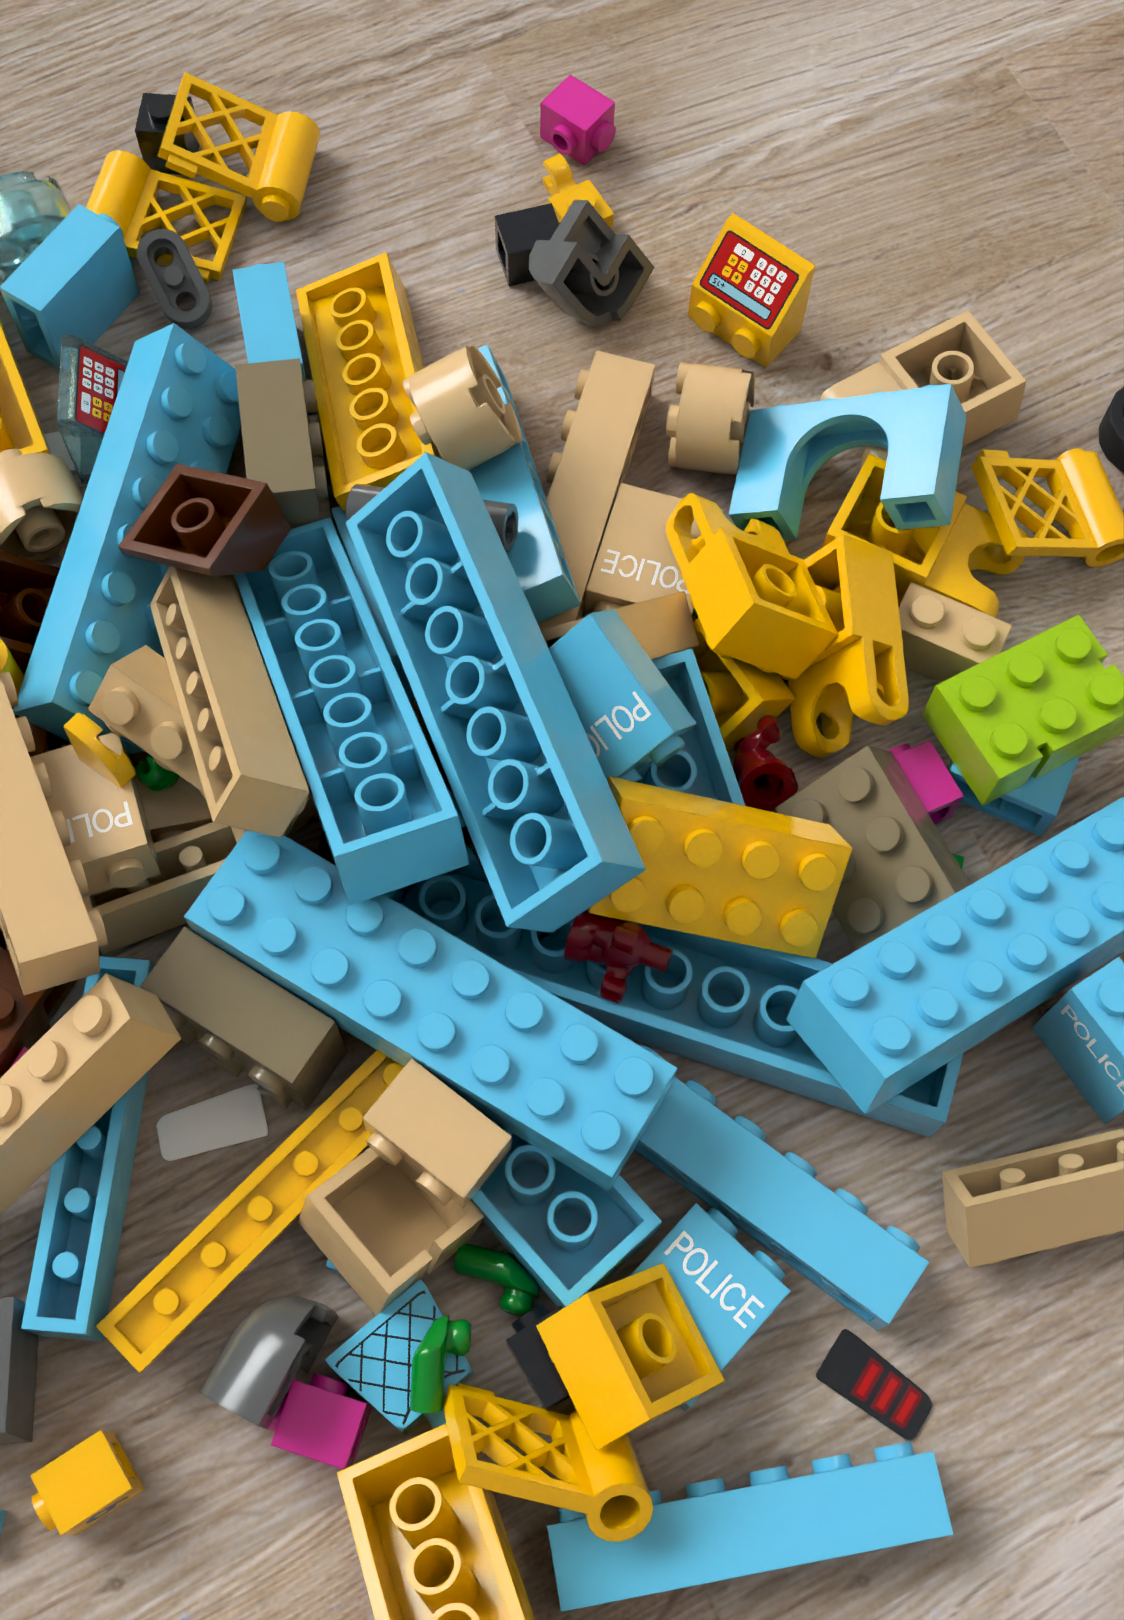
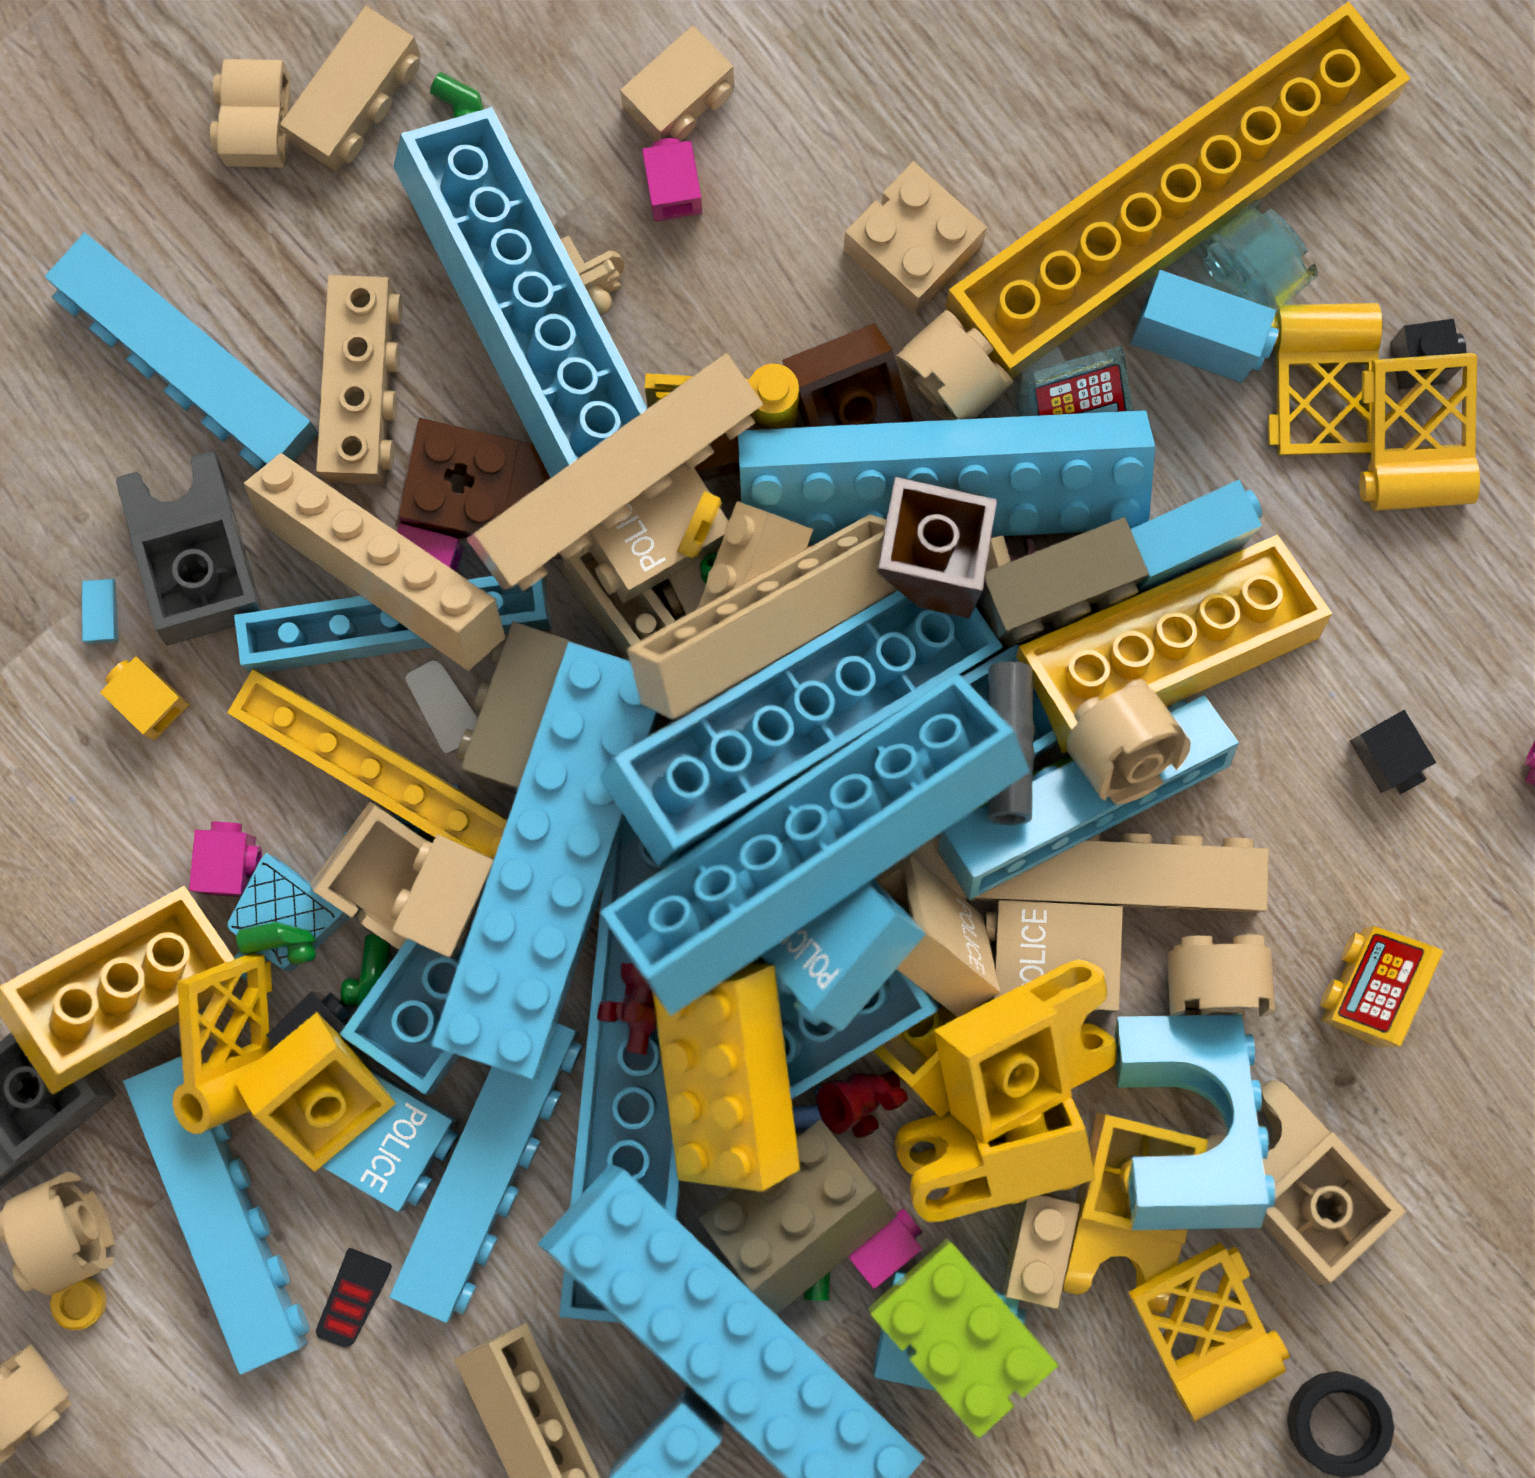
camera: 80 degrees right, 15 degrees up
(175, 281) = (1251, 416): dark grey plate -> none
(267, 1356) = (258, 807): dark grey brick -> none
(565, 190) = (1461, 786): yellow plate -> none
(589, 267) = (1366, 817): dark grey brick -> none

